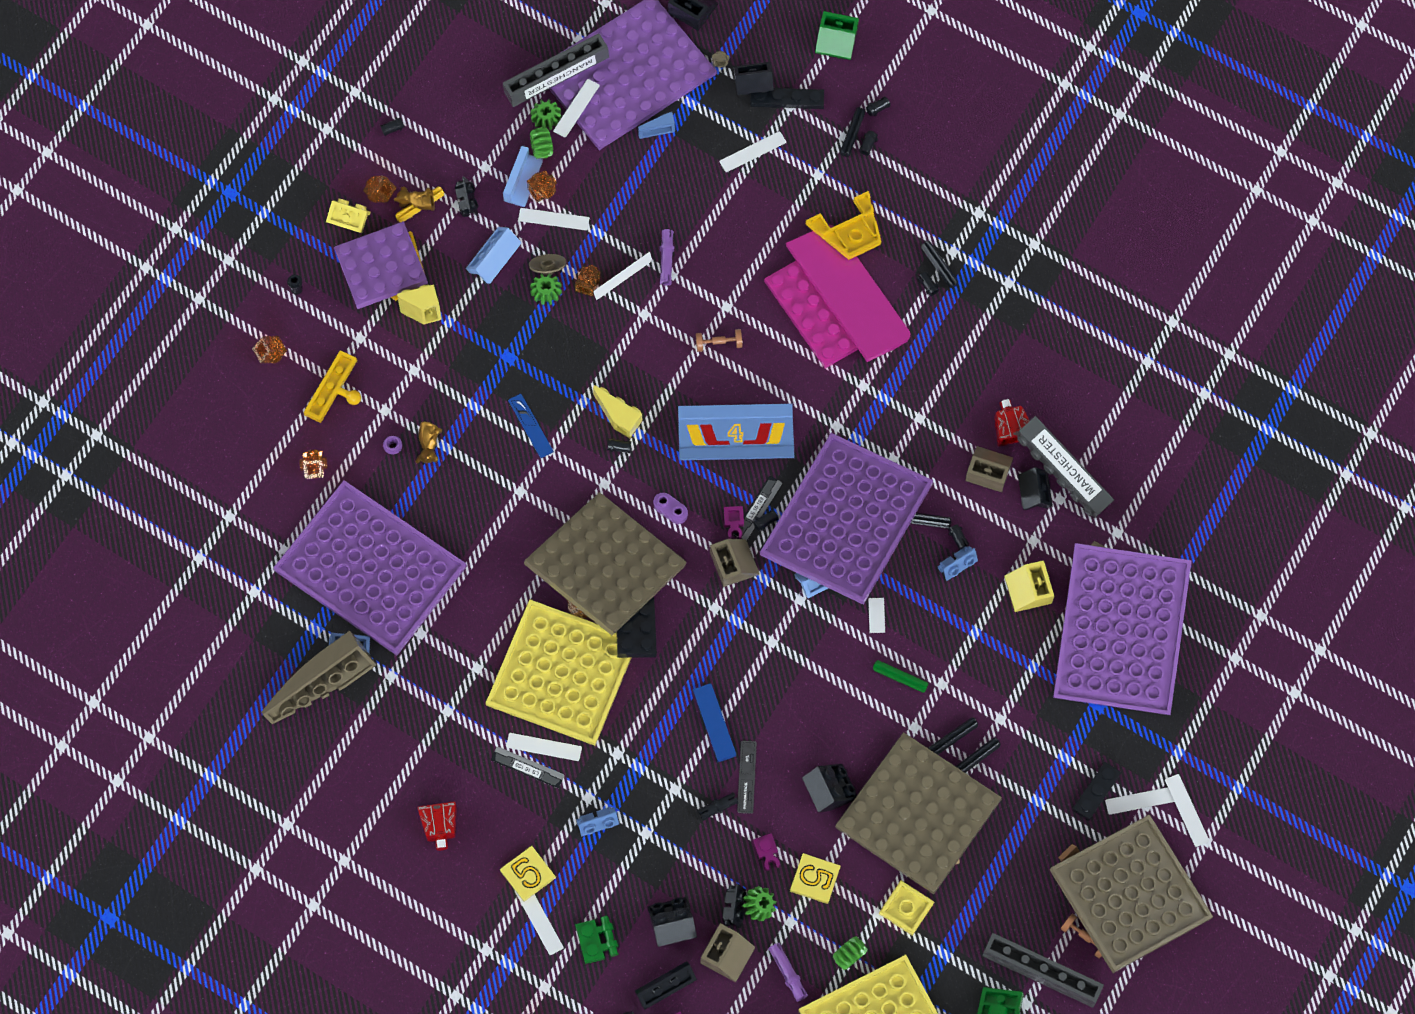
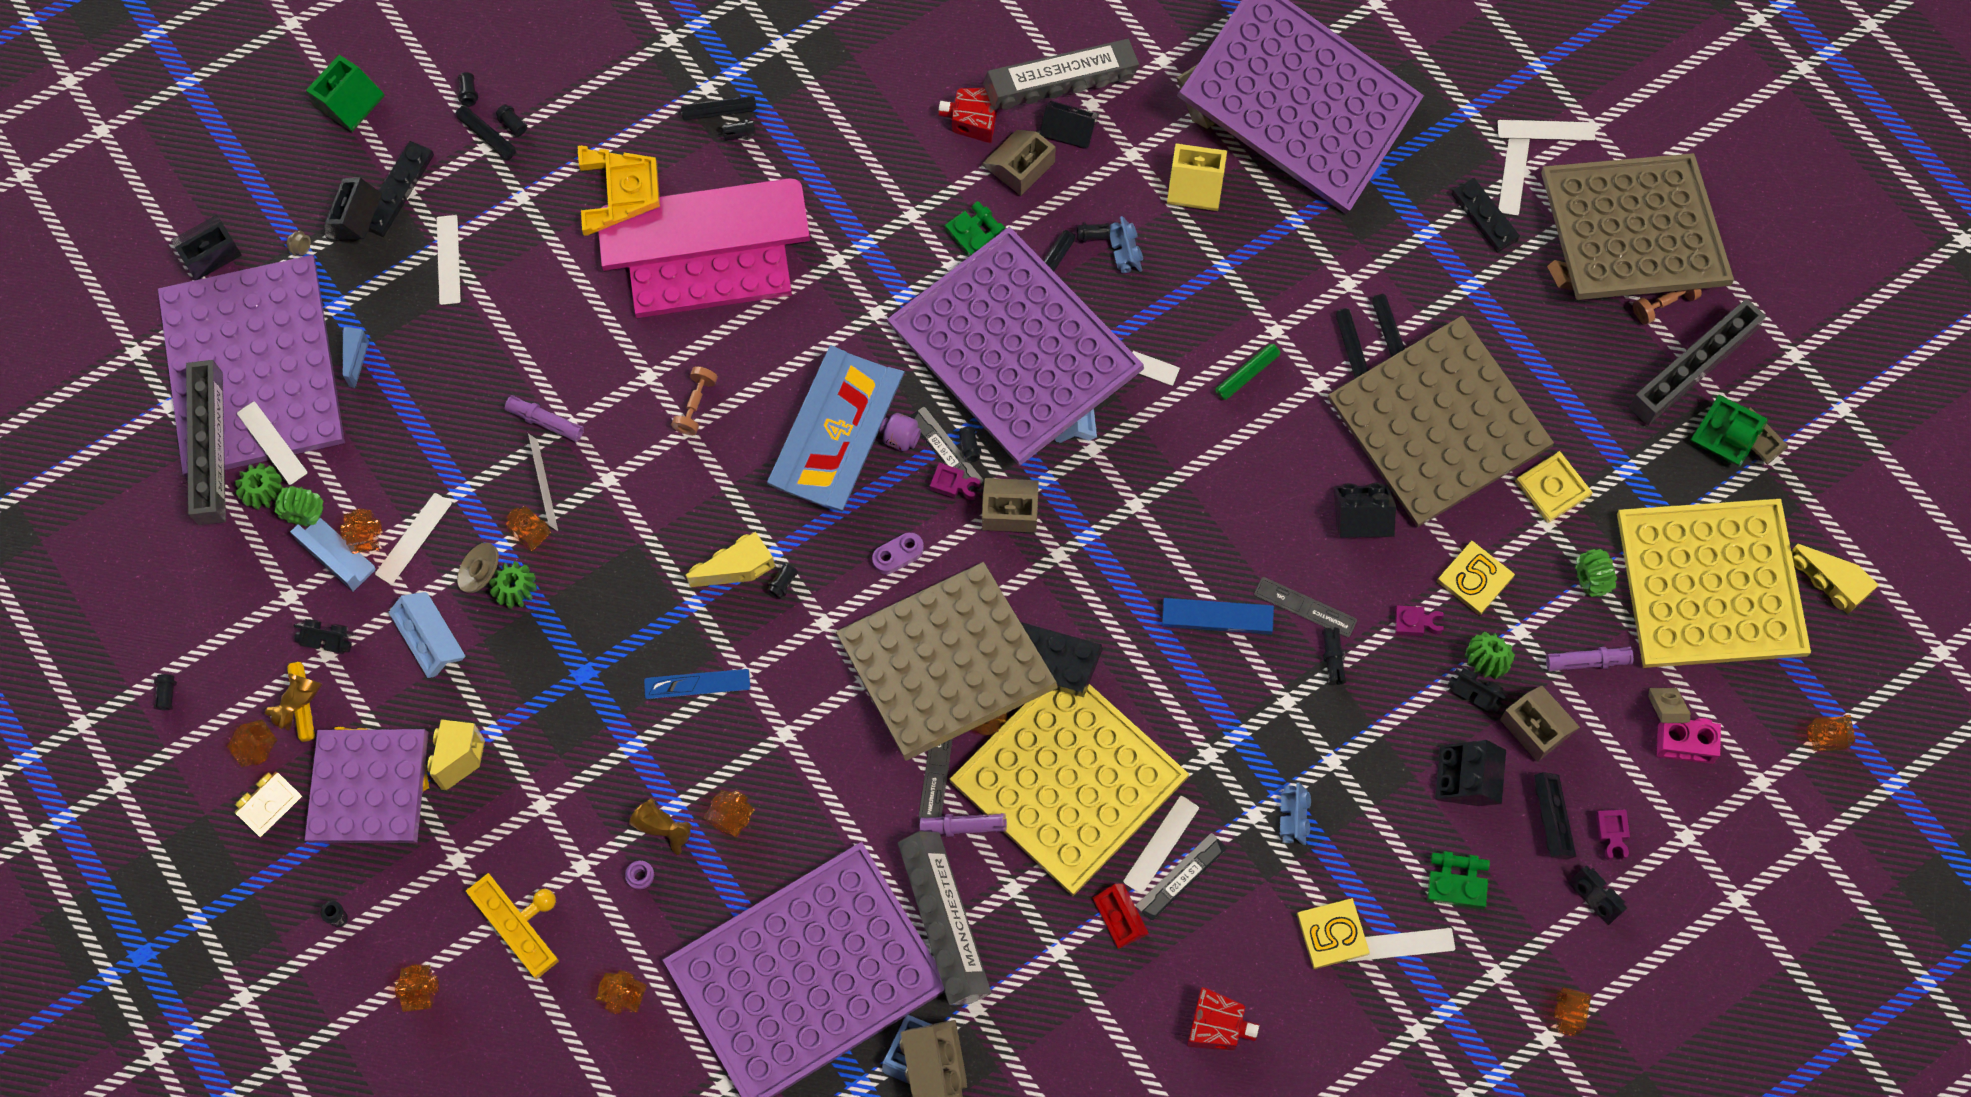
camera: 65 degrees left, 0 degrees up
(437, 631) = (944, 918): none -> dark grey brick
(451, 478) = (729, 812): none -> clear orange brick
(486, 739) = (1120, 915): none -> red slope
(500, 613) = (964, 824): none -> medium lavender pin
(526, 593) = (935, 781): none -> flat silver sticker
(754, 474) = (900, 432): none -> medium lavender head
(921, 457) = (966, 230): none -> green plate

